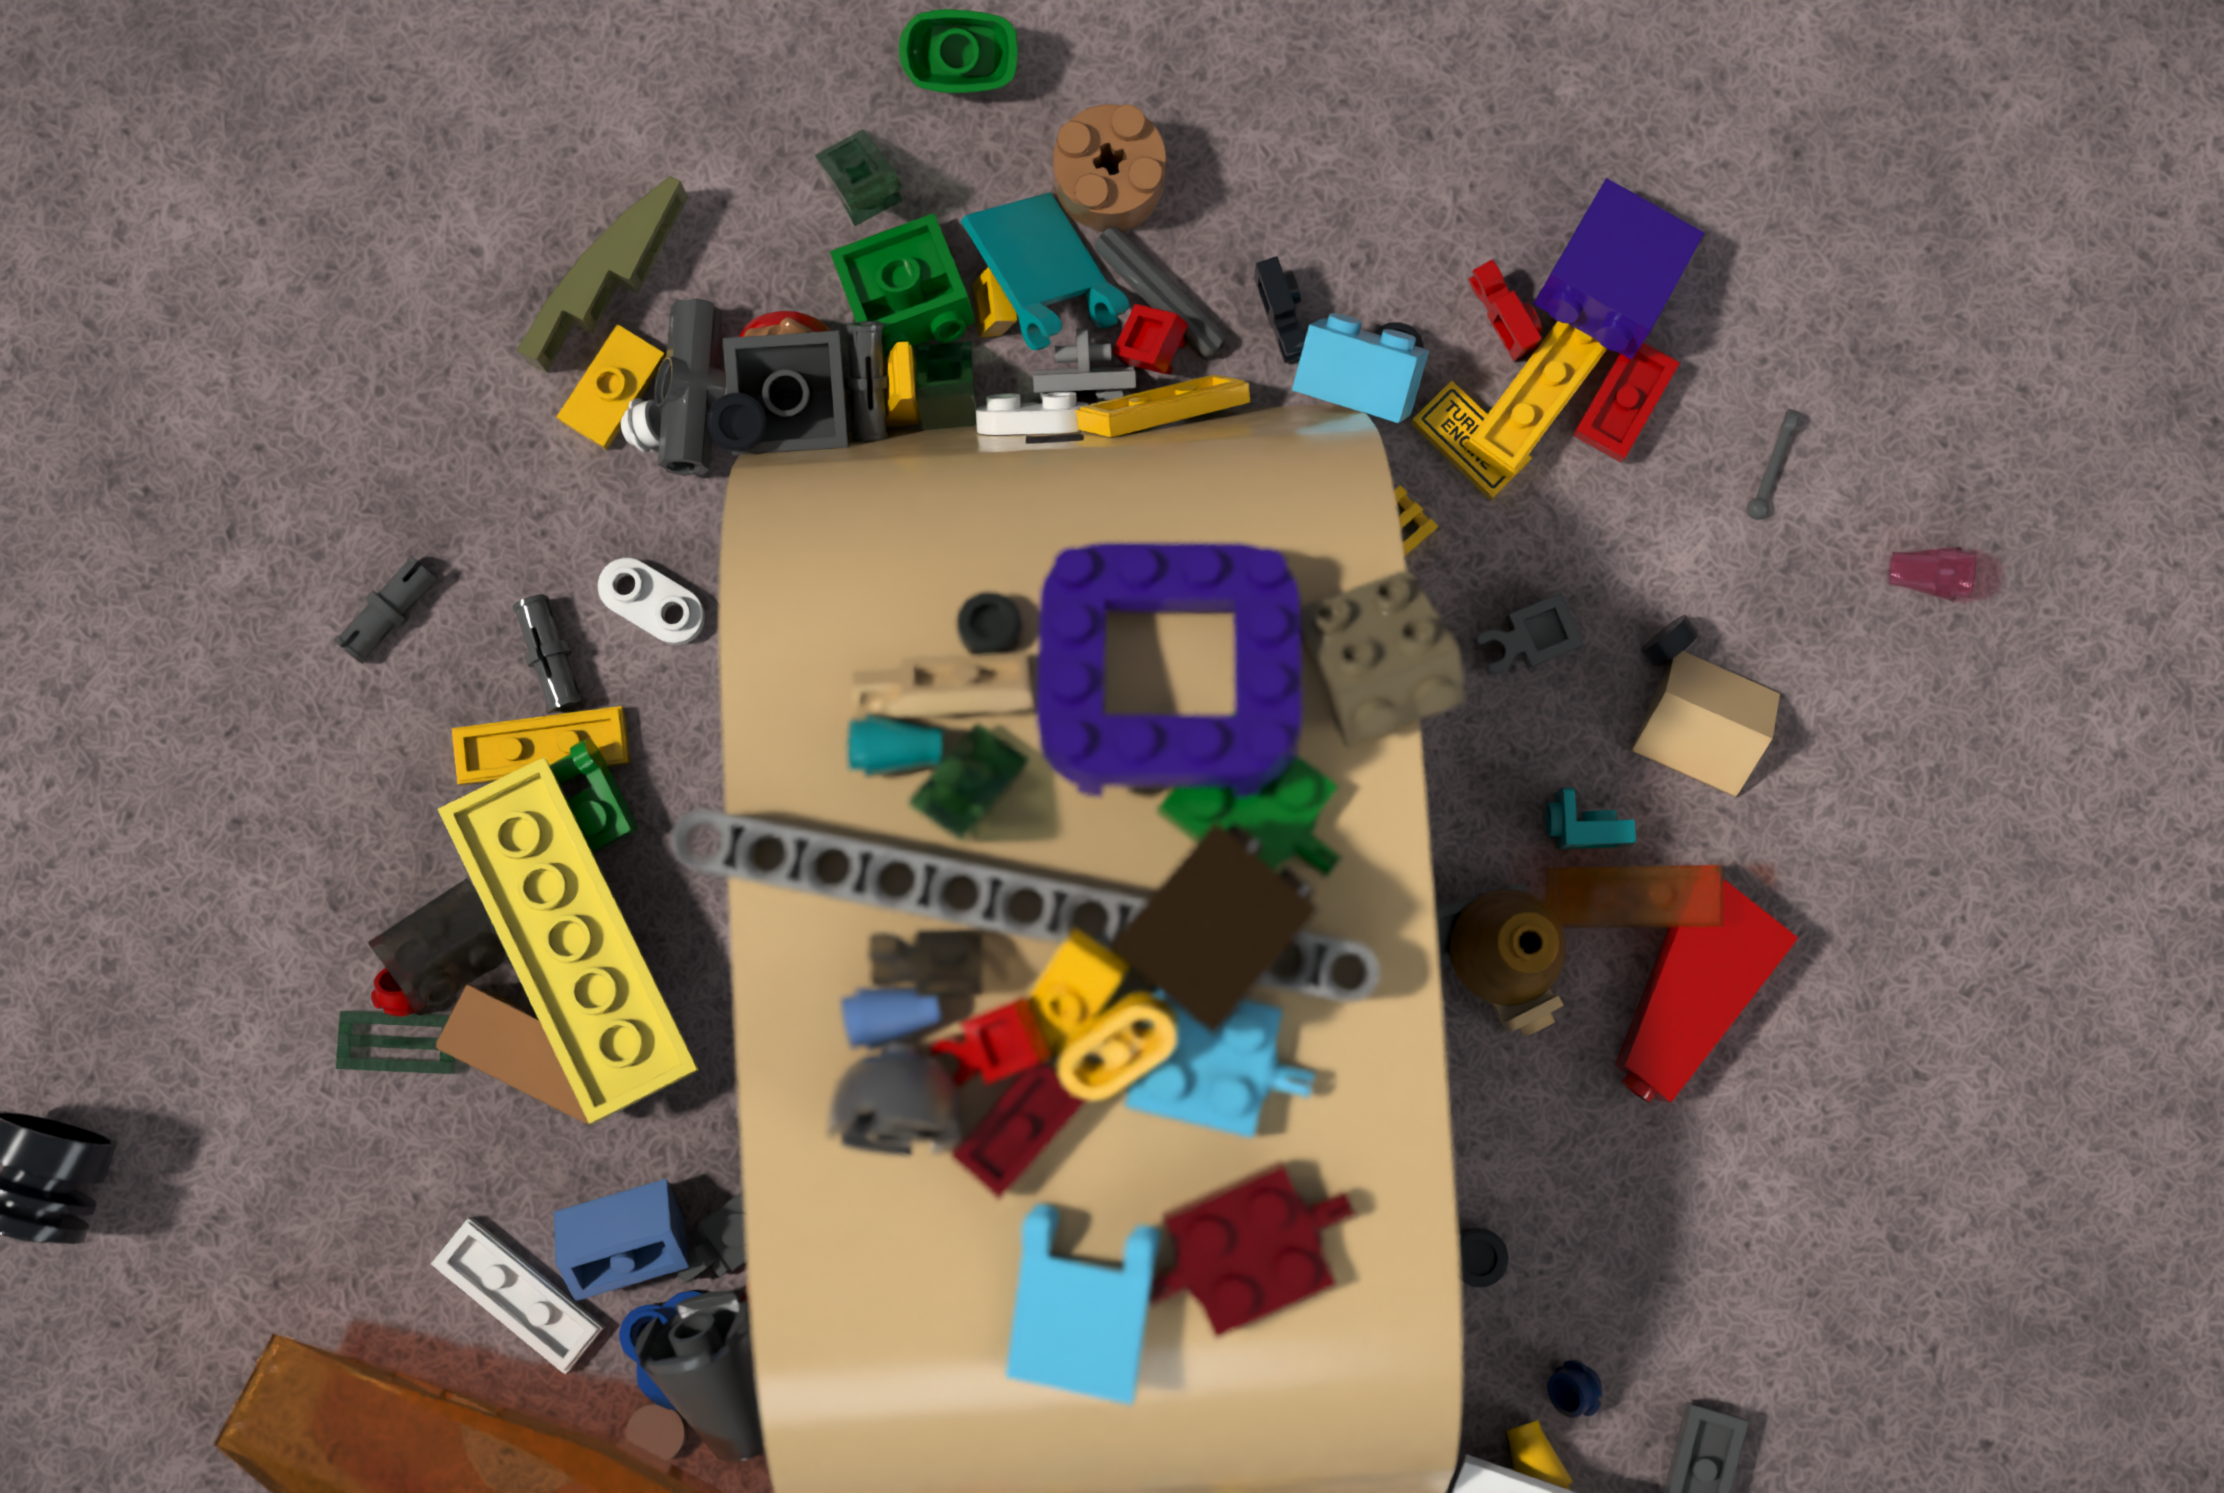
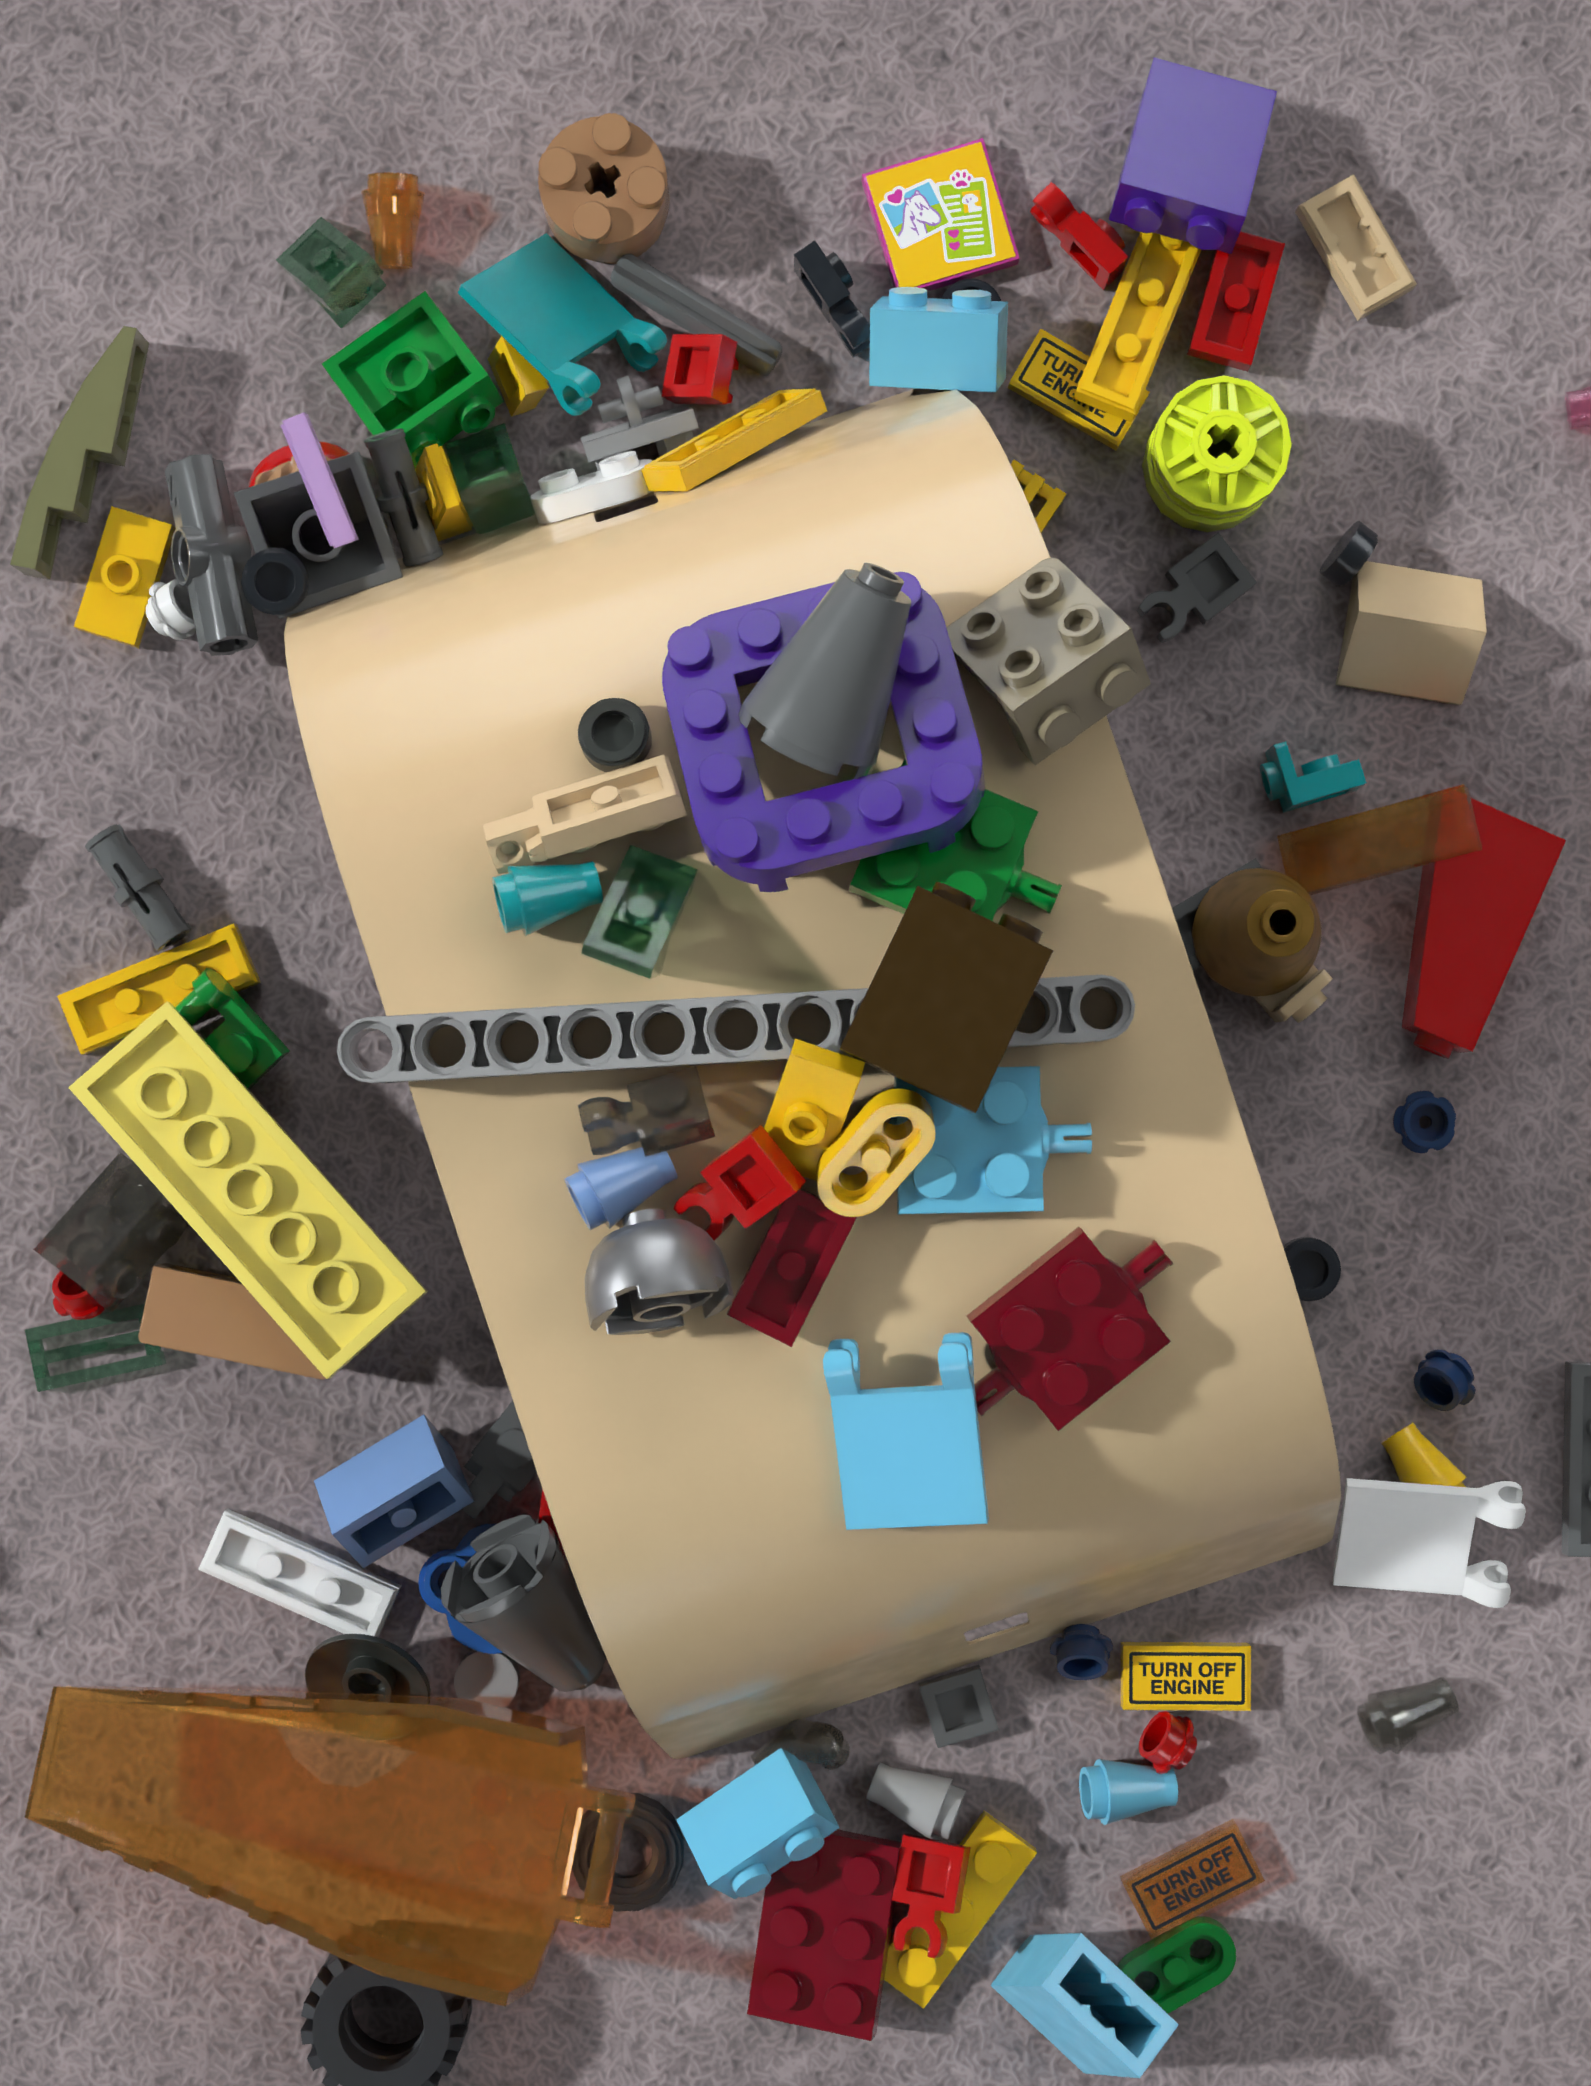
camera: 15 degrees left, 5 degrees up
(552, 1390) = (364, 1667): none -> pearl dark grey dish
(650, 600) = (233, 801): white plate -> none
(798, 346) = (319, 480): none -> lavender tile
(923, 145) = (393, 217): none -> clear orange cone
(959, 51) = (403, 101): green piece -> none
(1192, 622) = (836, 675): none -> dark grey cone
(1390, 265) = (940, 217): none -> tile
(1575, 557) = (1222, 490): none -> neon yellow wheel
(1629, 1158) = (1441, 1126): none -> dark blue plate
(1740, 382) = (1355, 247): none -> tan plate
(1758, 507) = (1409, 381): dark grey hinge -> none

